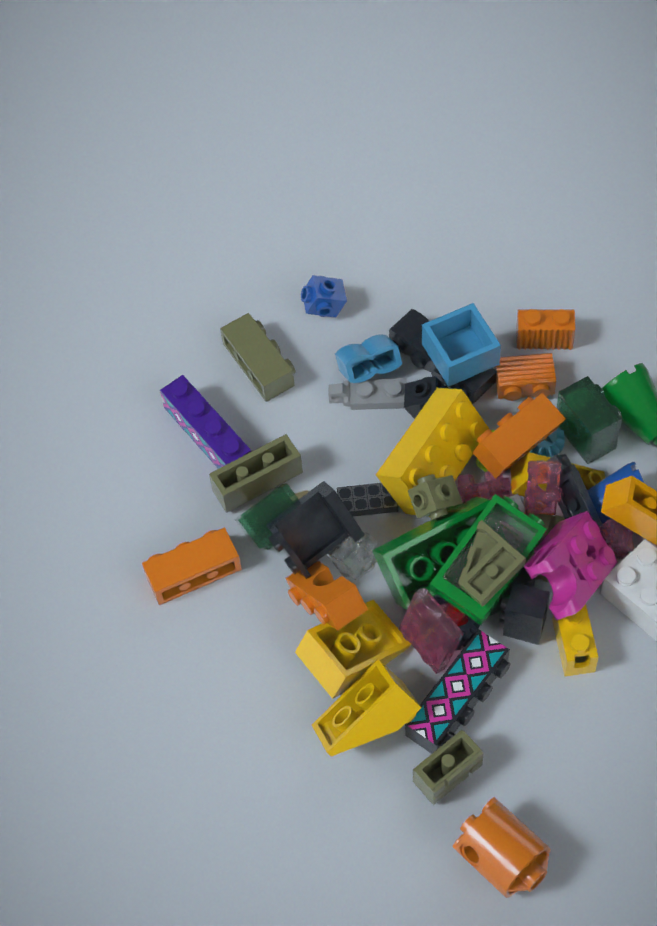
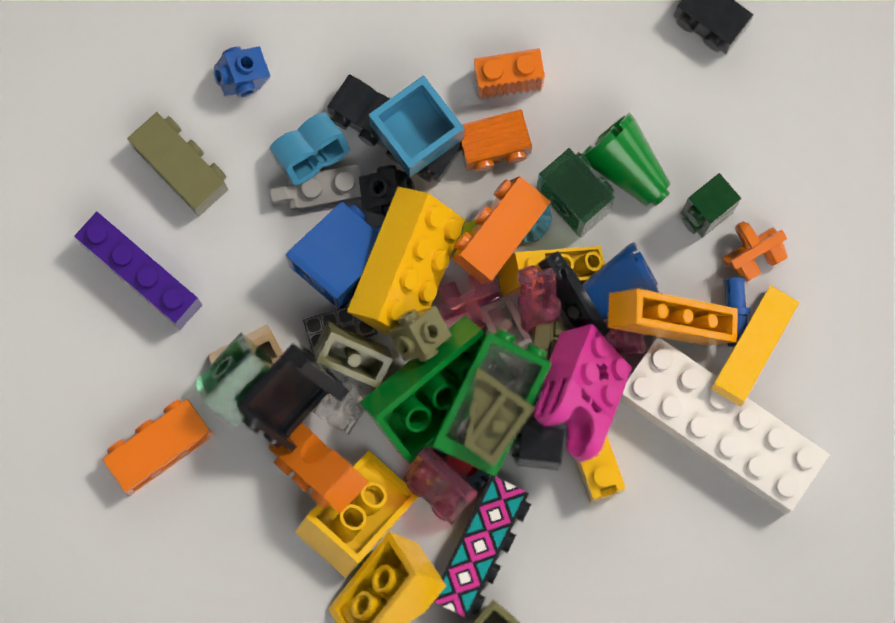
camera: 15 degrees left, 20 degrees up
(256, 473) = (208, 321): olive brick -> none
(368, 437) = (335, 253): none -> blue slope
(375, 514) = (352, 354): none -> olive brick

